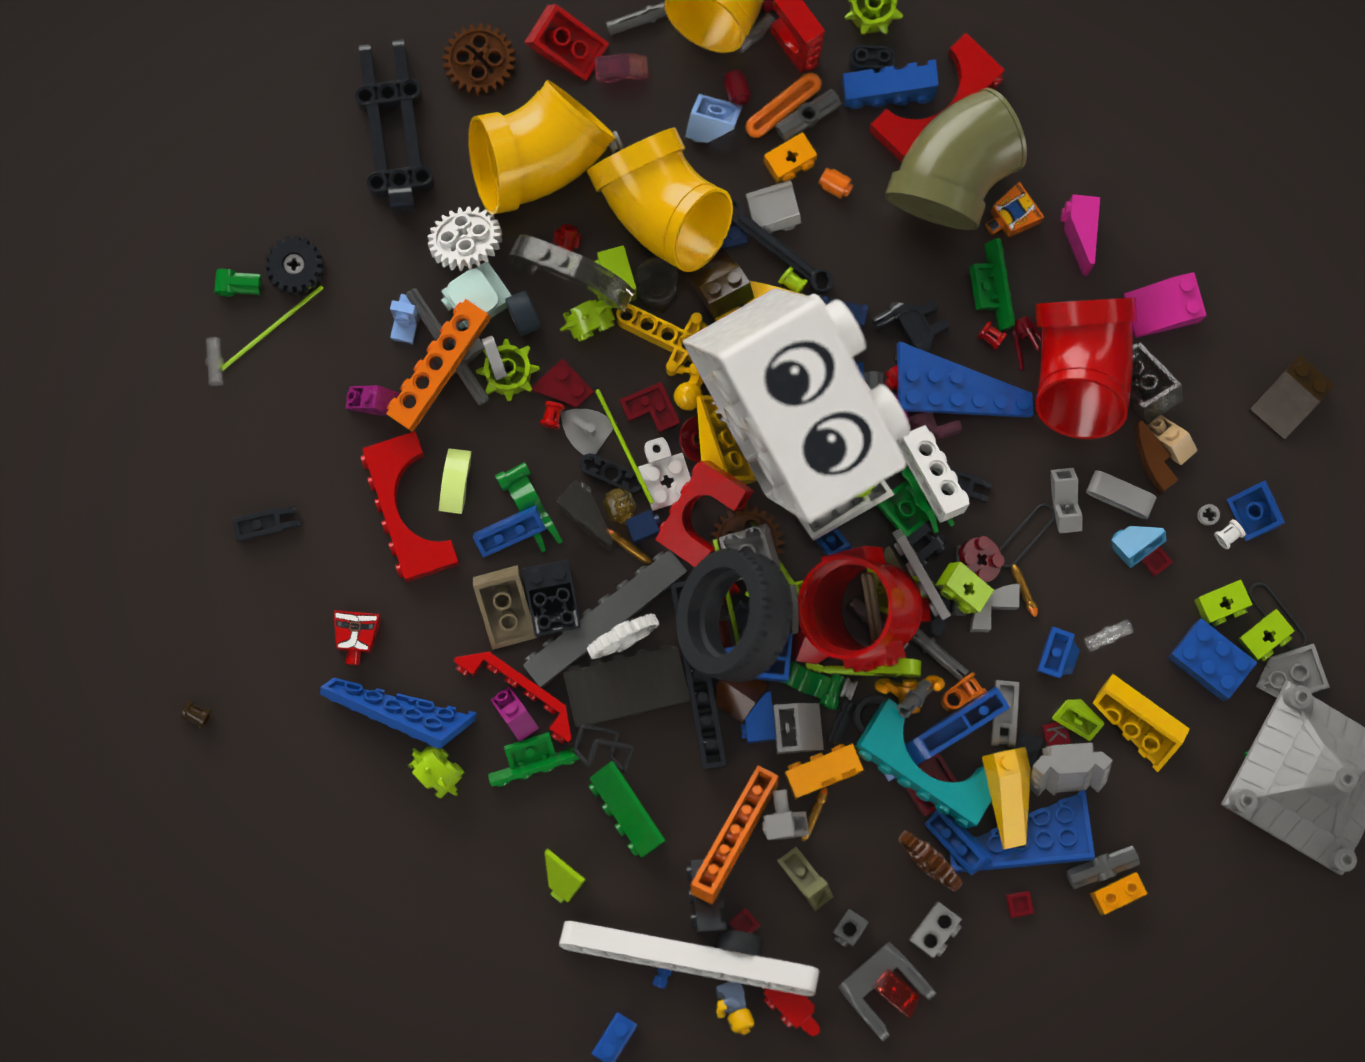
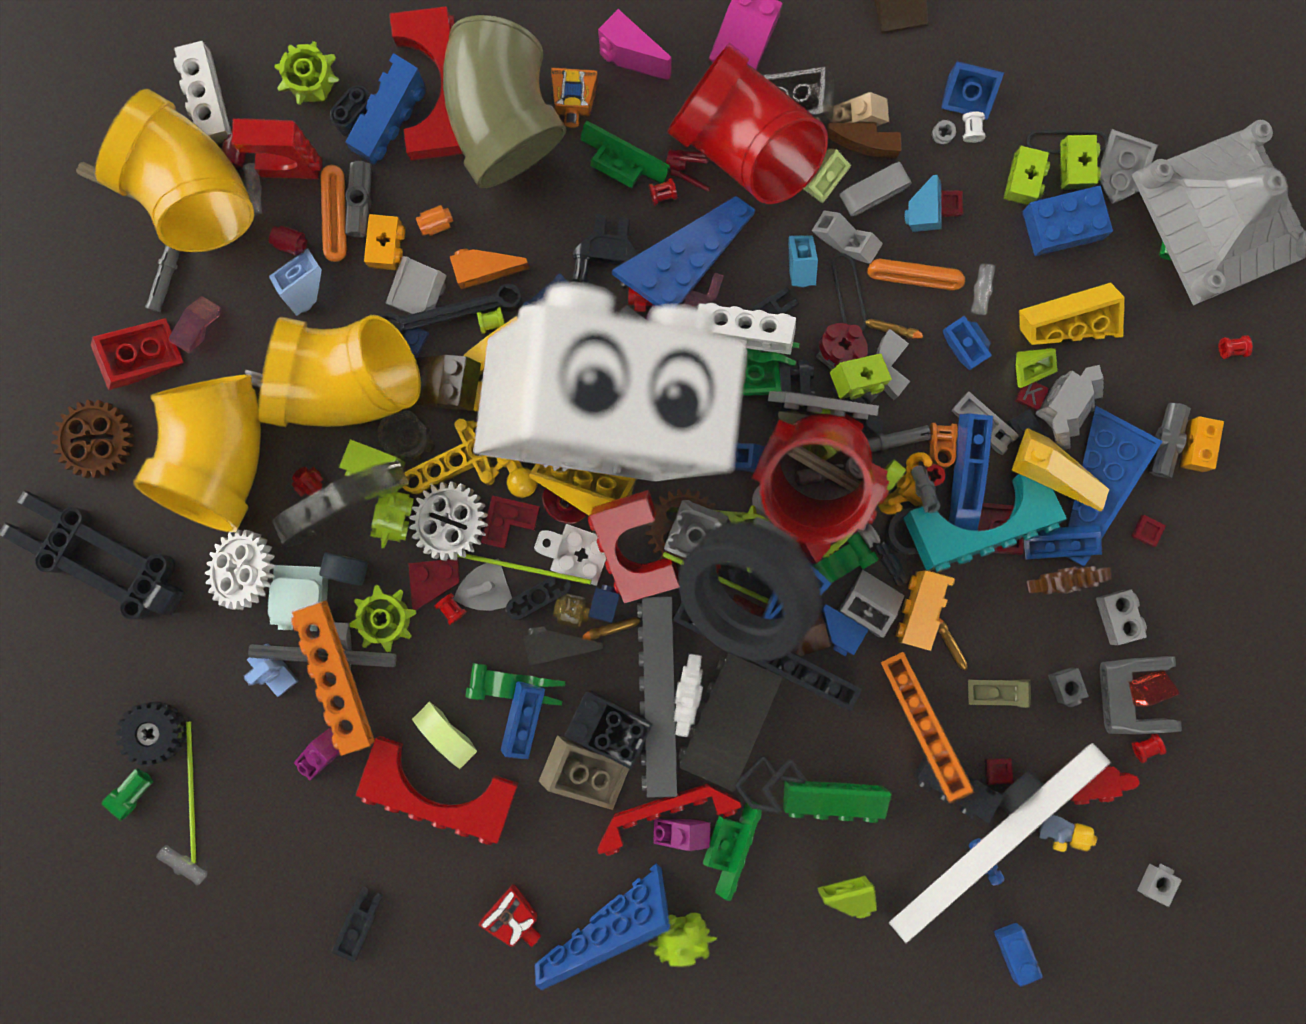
camera: 50 degrees left, 5 degrees up
(494, 357) = (363, 624): light grey beam -> none
(596, 369) = (456, 500): none -> white gear
(784, 823) = (946, 676): light grey brick -> none
(827, 243) = (478, 266): none -> orange slope
(849, 1026) = (1148, 748): none -> red bush
(929, 709) = (938, 472): none -> red bush
(1021, 480) = (802, 261): none -> dark azure slope
(1079, 575) = (916, 274): none -> orange piece
(1104, 450) = (828, 176): none -> yellowish green slope
(1217, 865) = (1235, 347): none -> red bush

